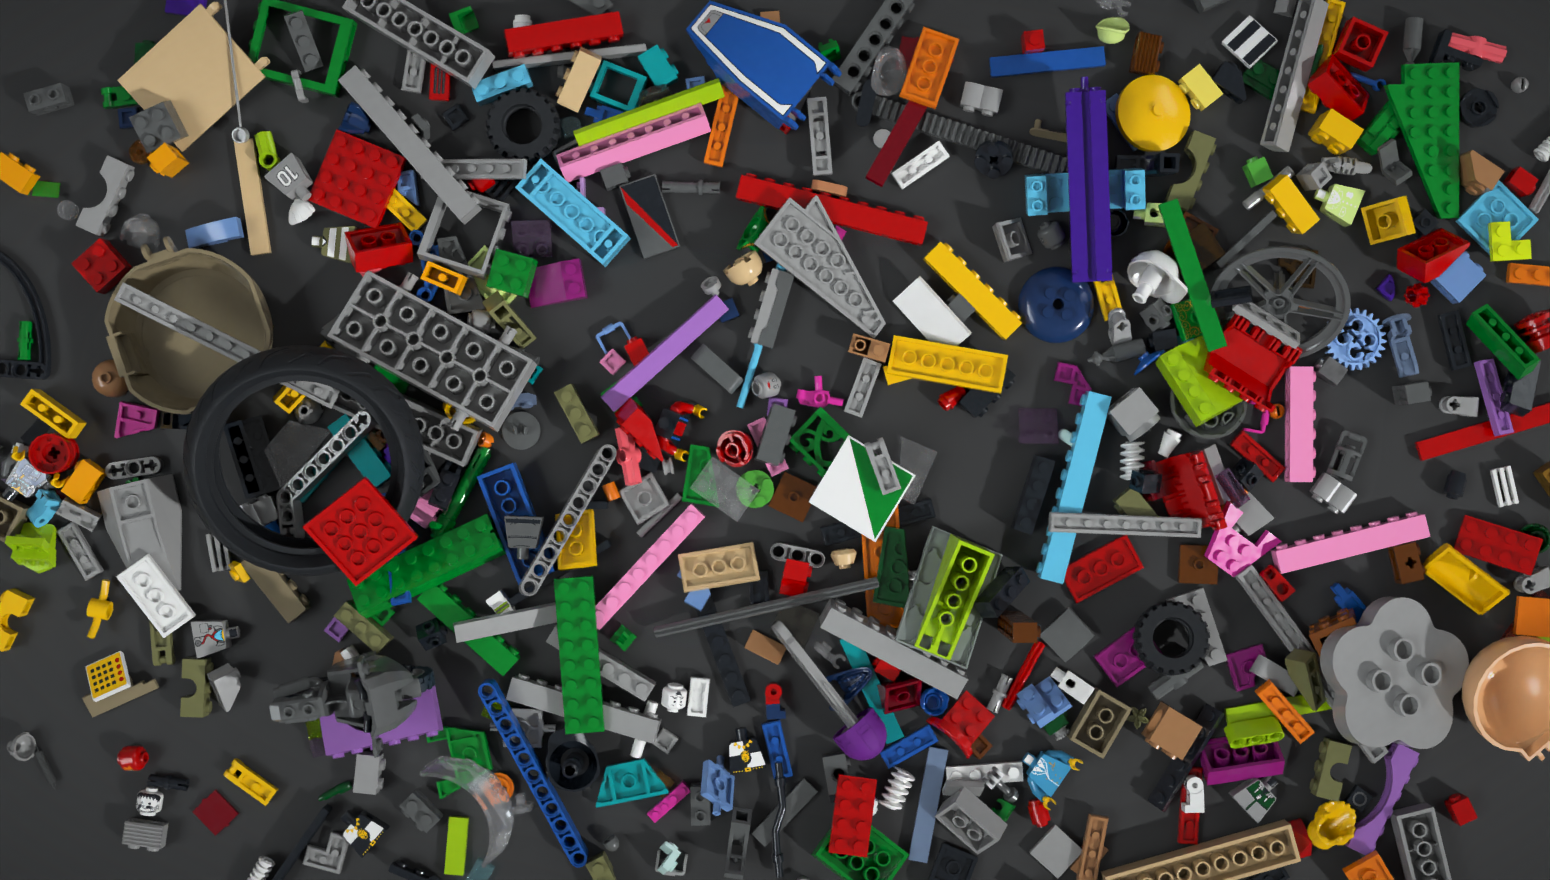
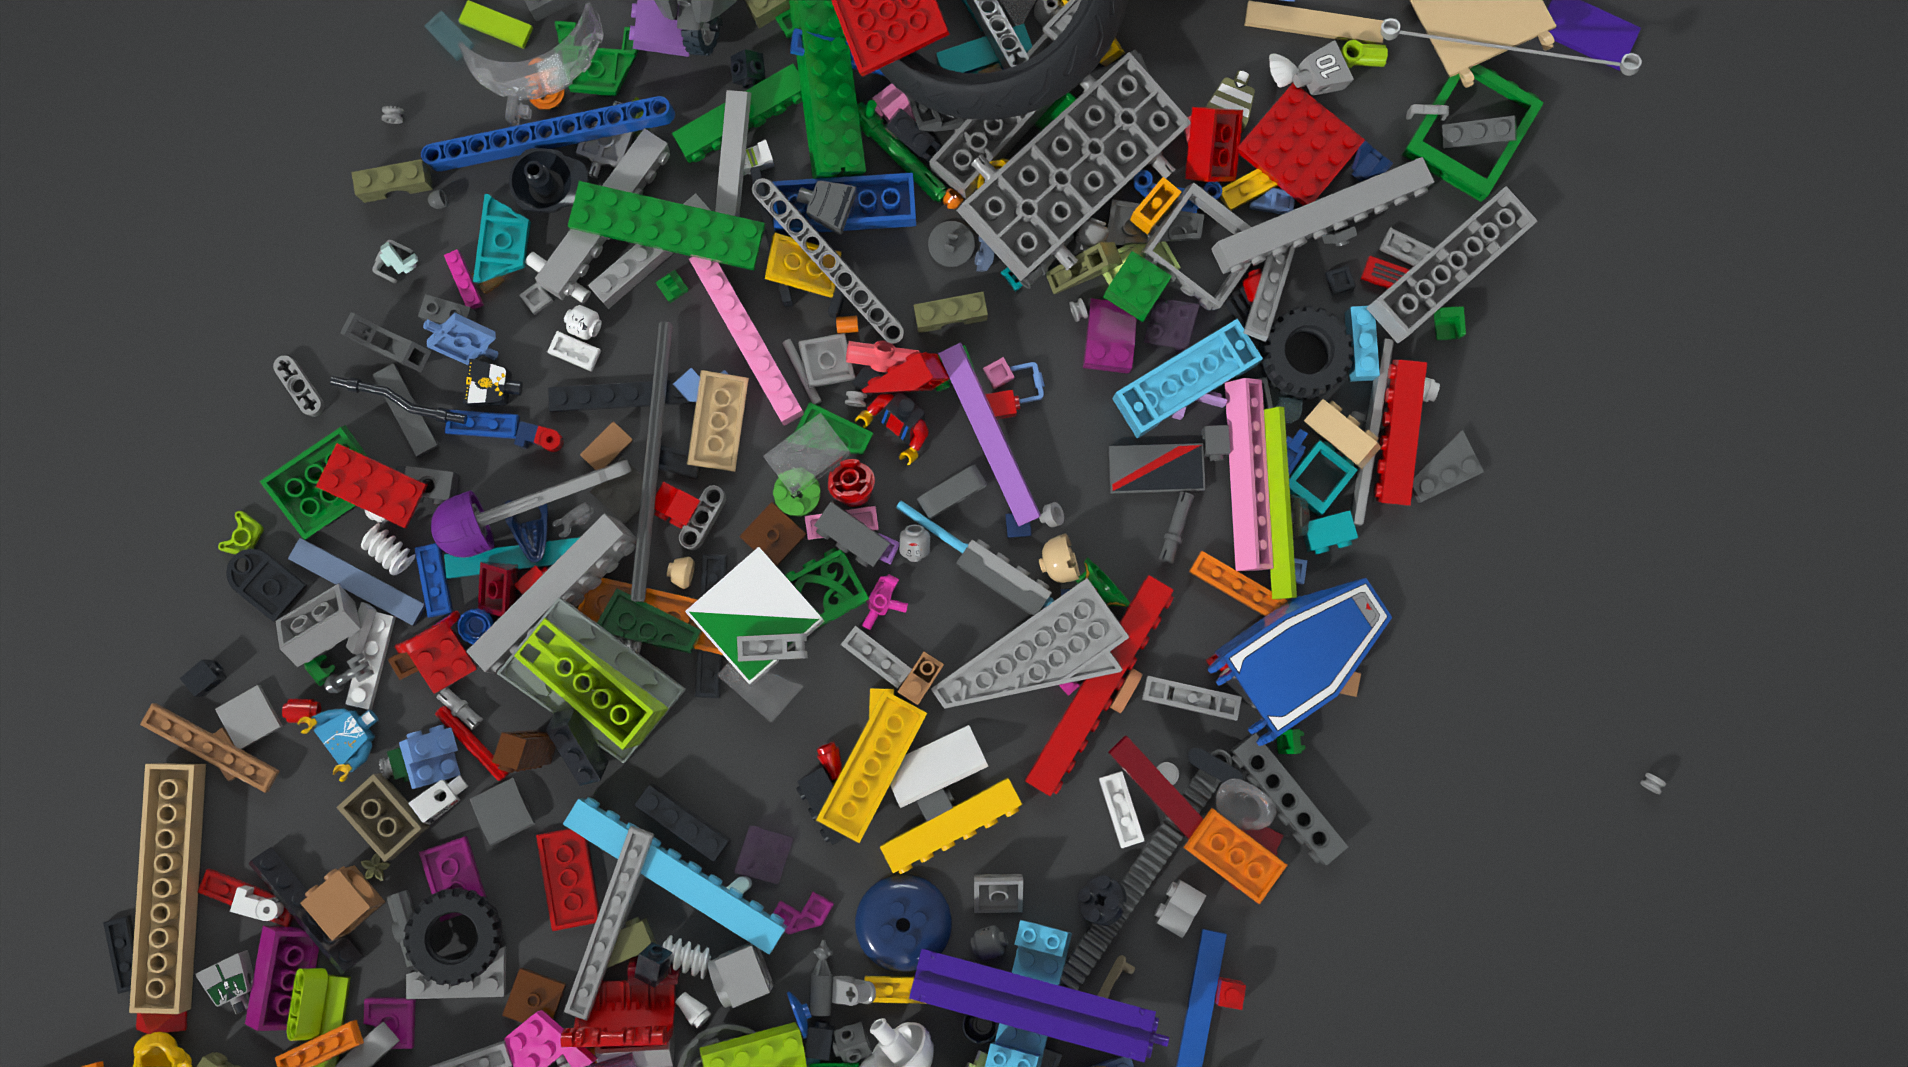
camera: 105 degrees right, 5 degrees down
(543, 314) = (1078, 309): none -> light grey bush

